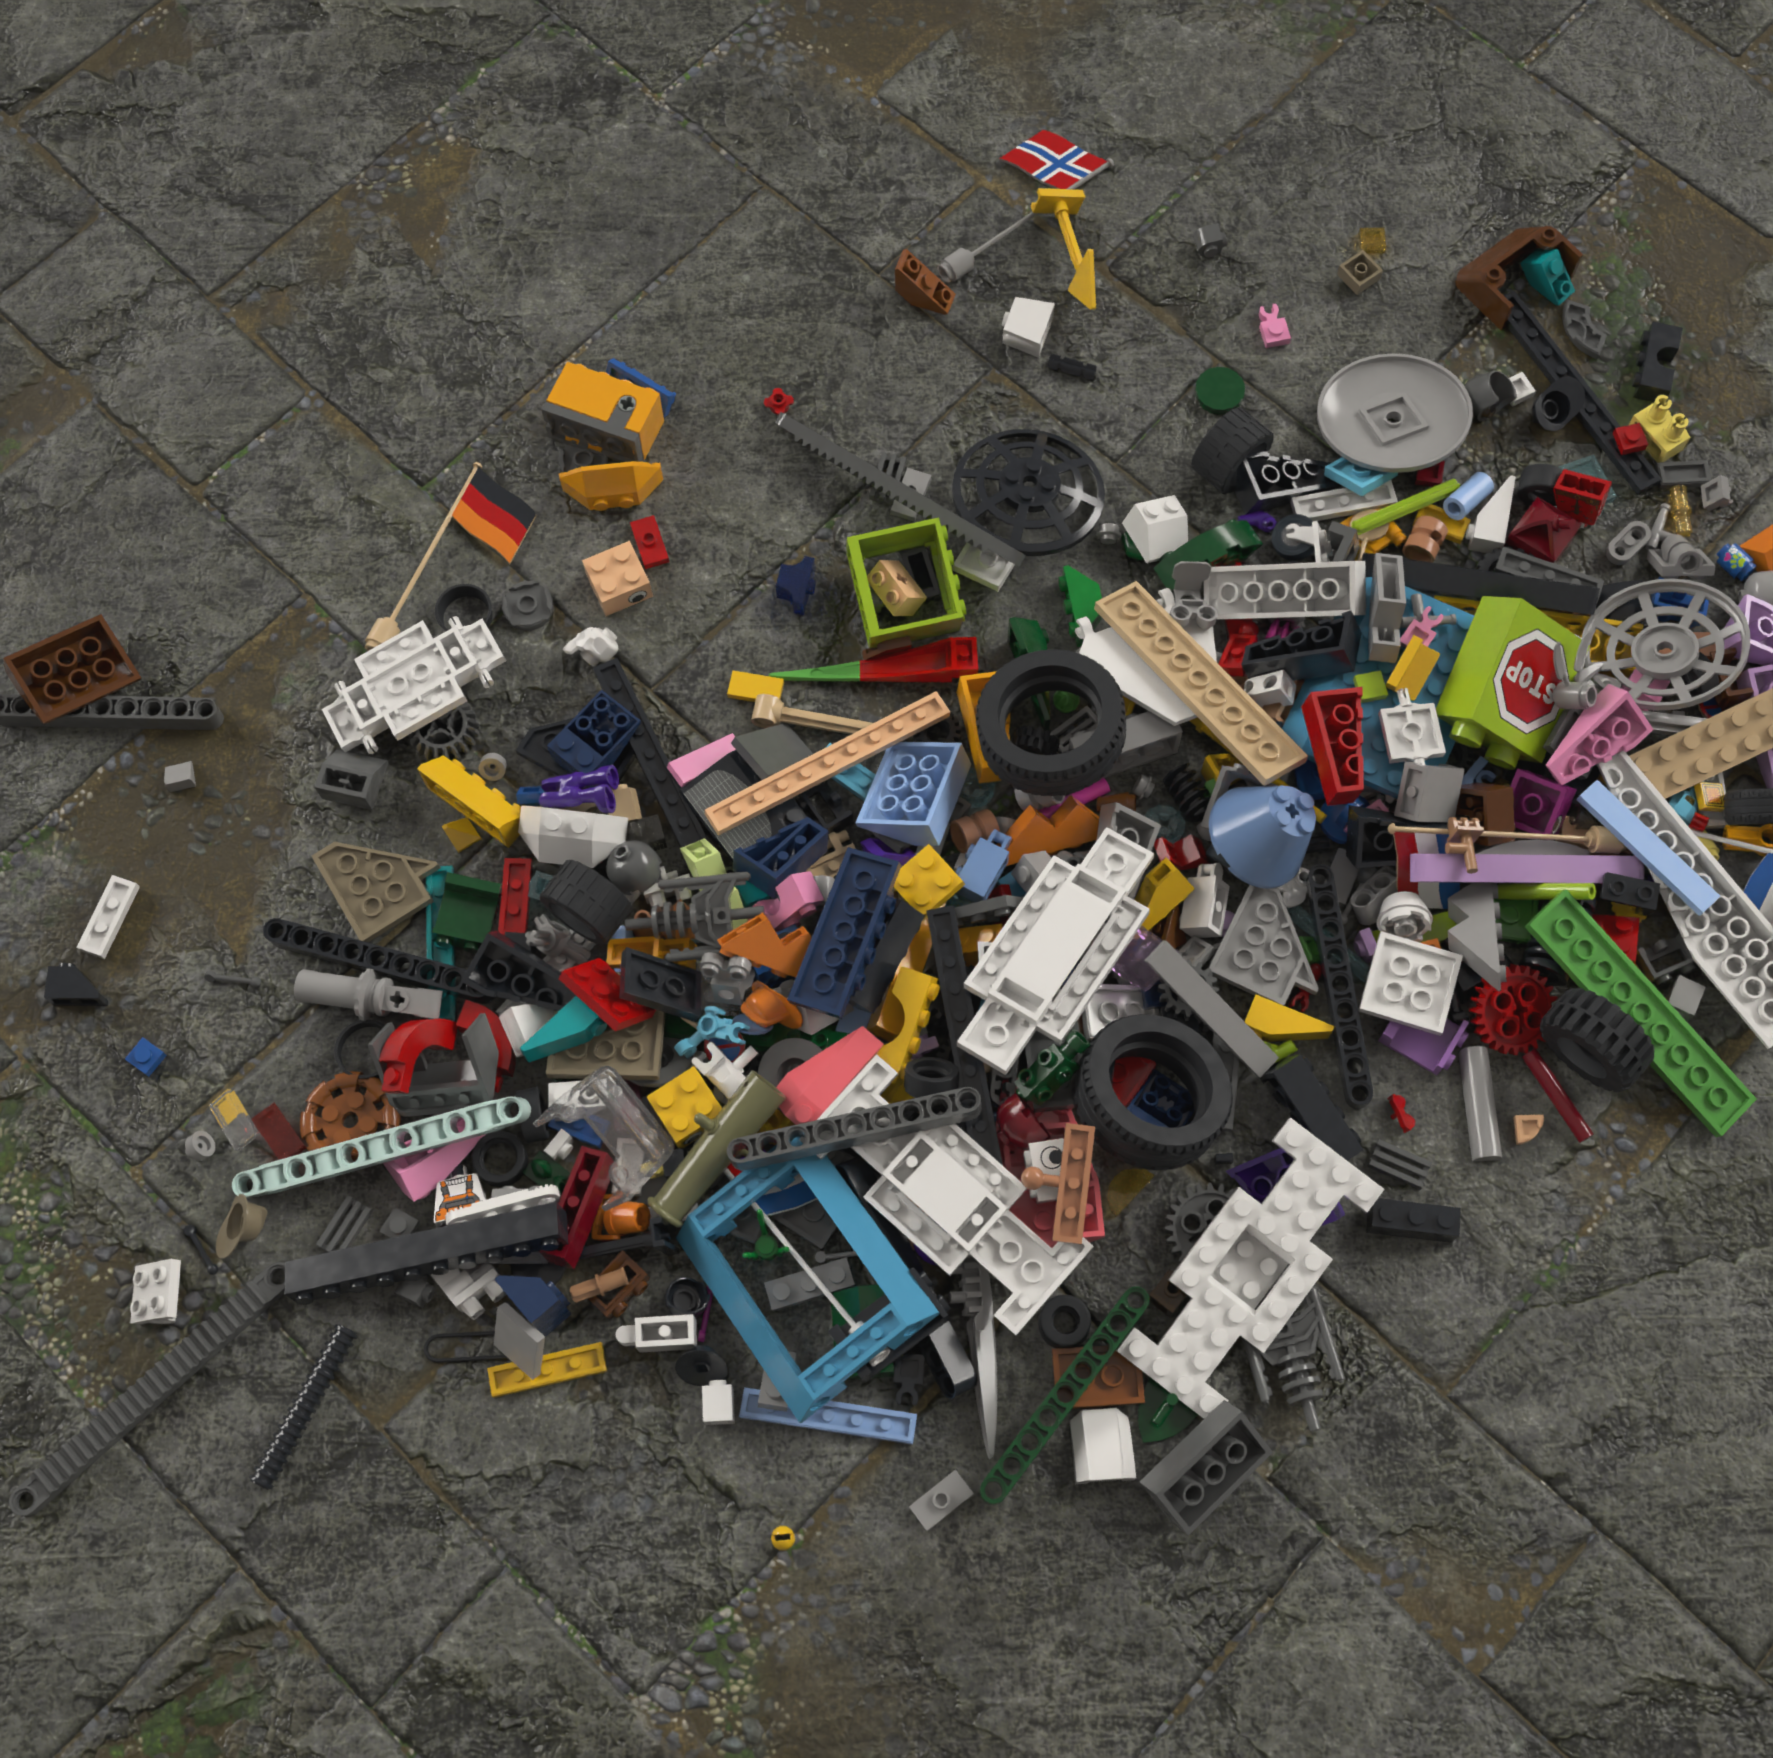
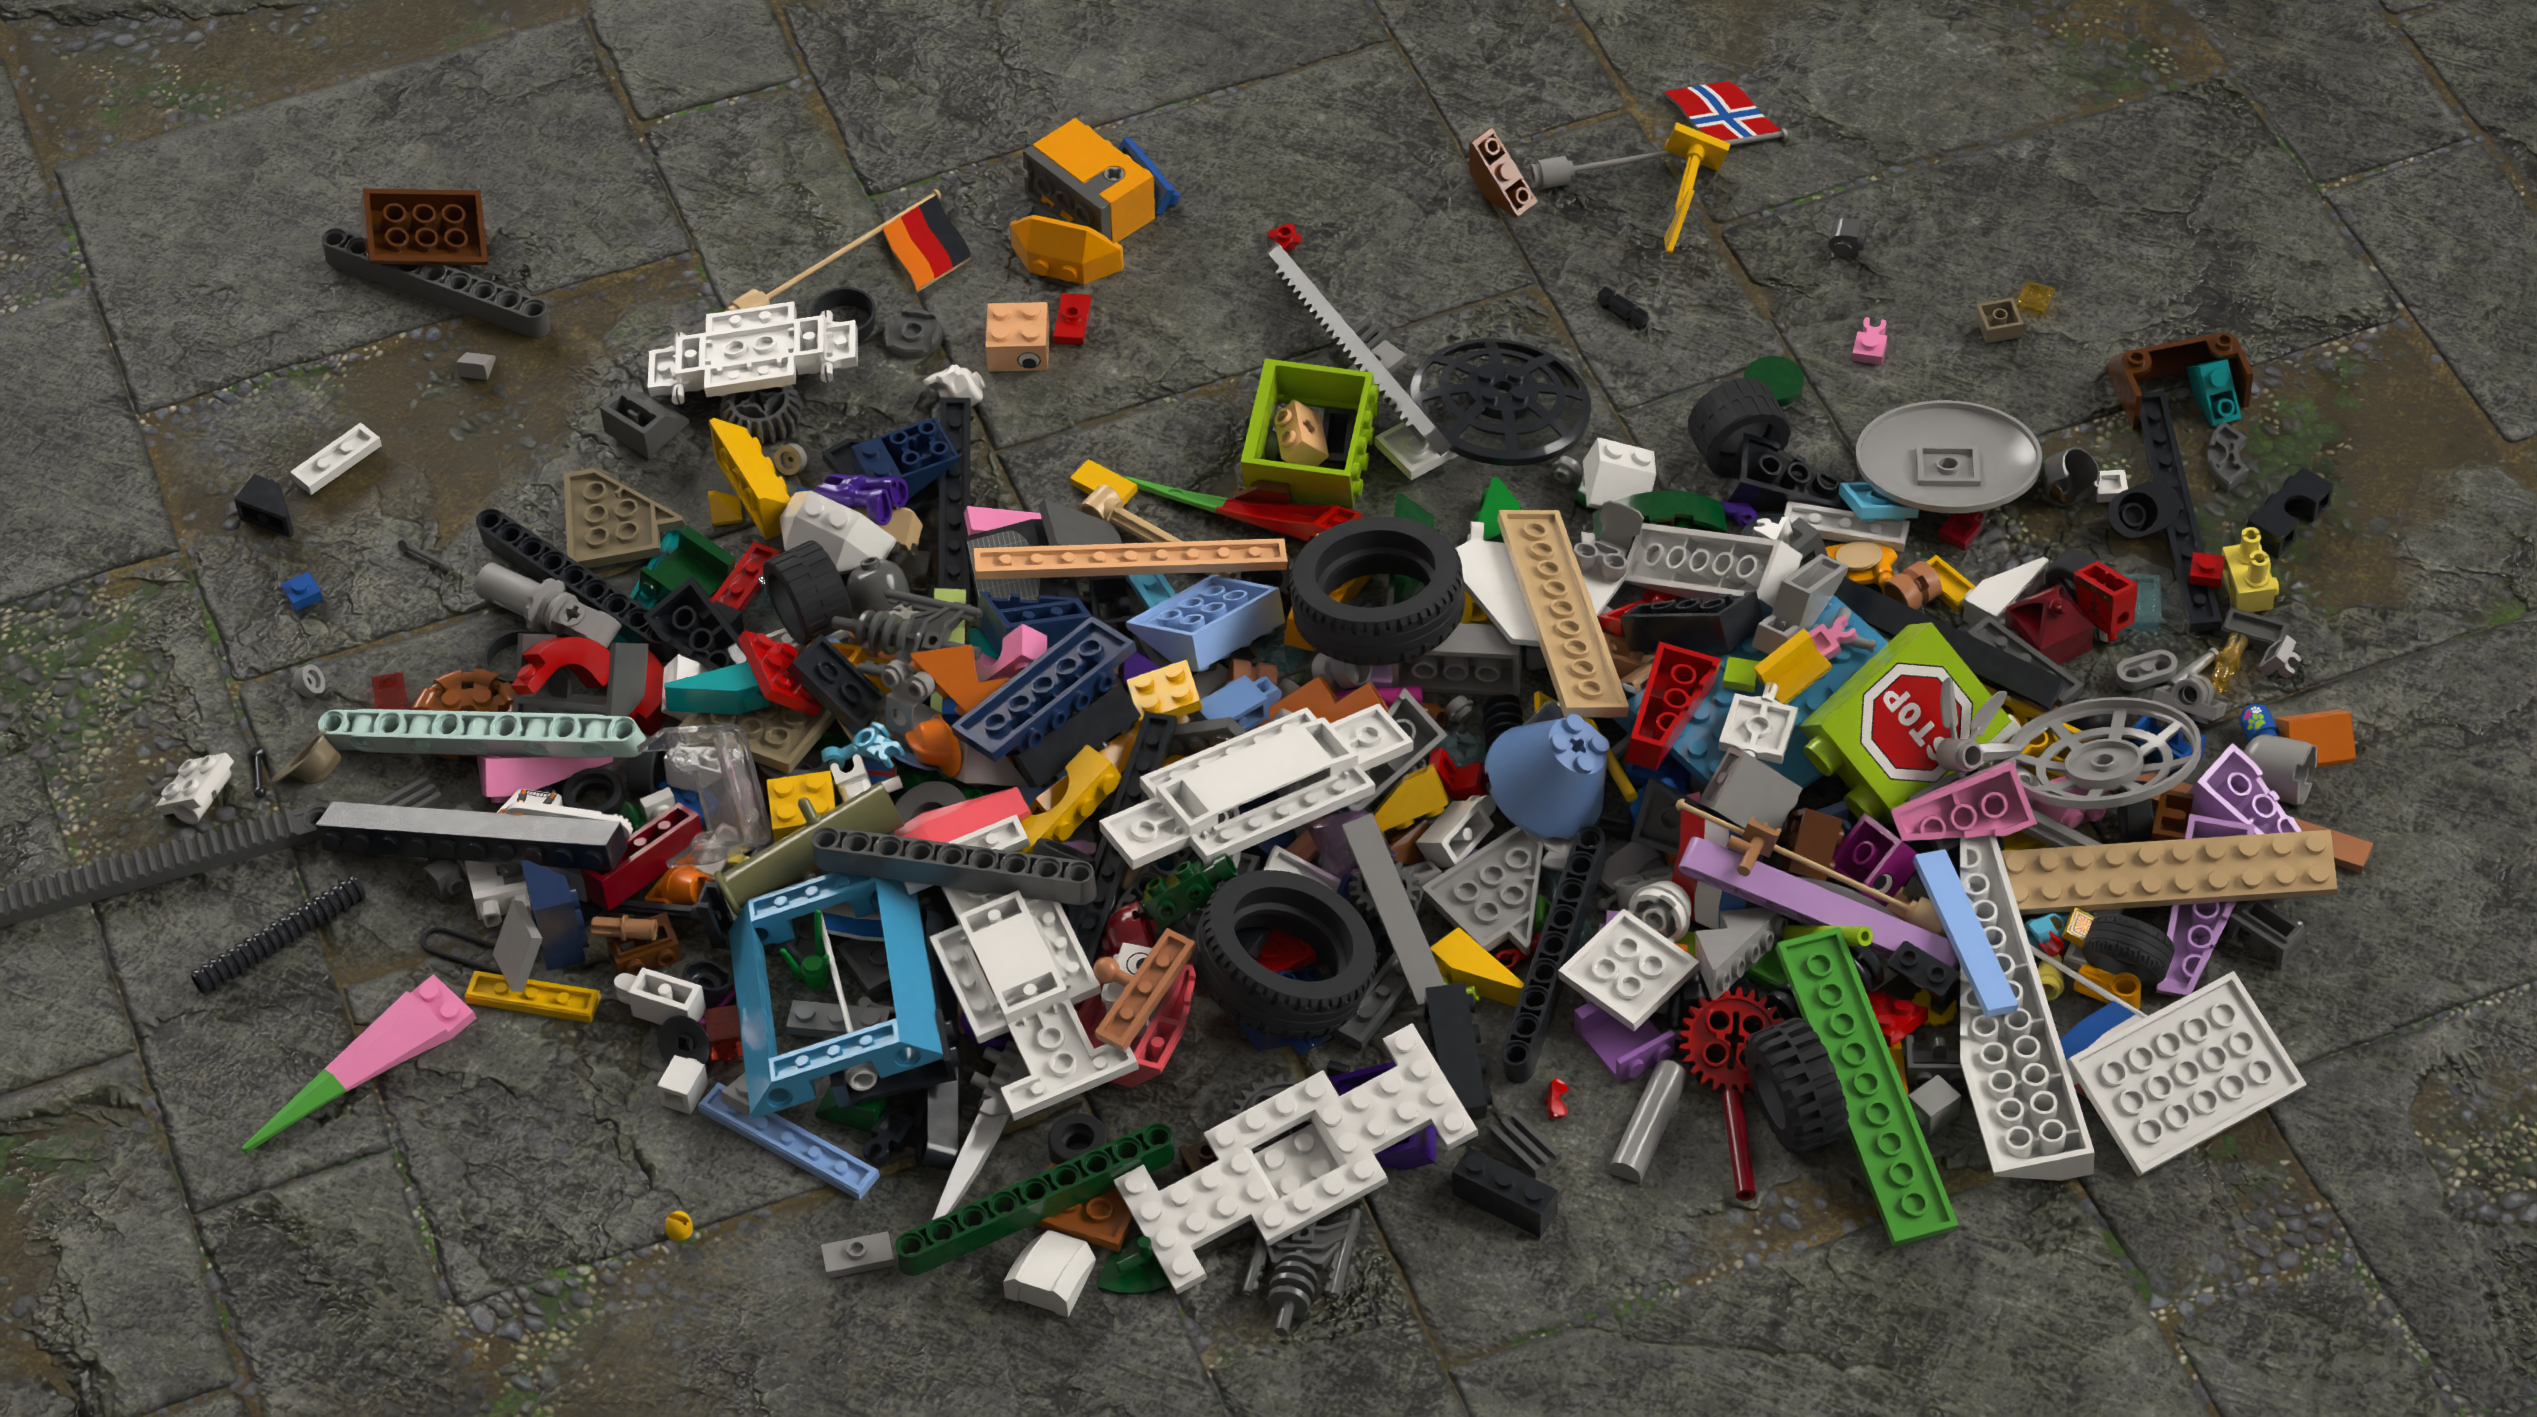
camera: 25 degrees right, 20 degrees down
(234, 1119) = (354, 672): clear tile -> none
(460, 1449) = (404, 1030): none -> bright pink plate
(554, 939) = (755, 617): light grey bush -> none
(726, 1340) = (723, 1032): none -> clear red brick
(797, 583) = (1202, 403): clear blue brick -> none
(1027, 325) = (1596, 252): white torso -> none
(1126, 1187) = (1220, 1058): clear yellow tile -> none
(1206, 1467) = (1143, 1315): dark grey brick -> none
(1271, 688) = (1636, 652): white leg -> none
(1405, 506) = (1907, 548): lime axle -> none
(1468, 496) = (1985, 562): light blue brick -> none
(1527, 1127) = (1688, 1163): light nougat tile -> none

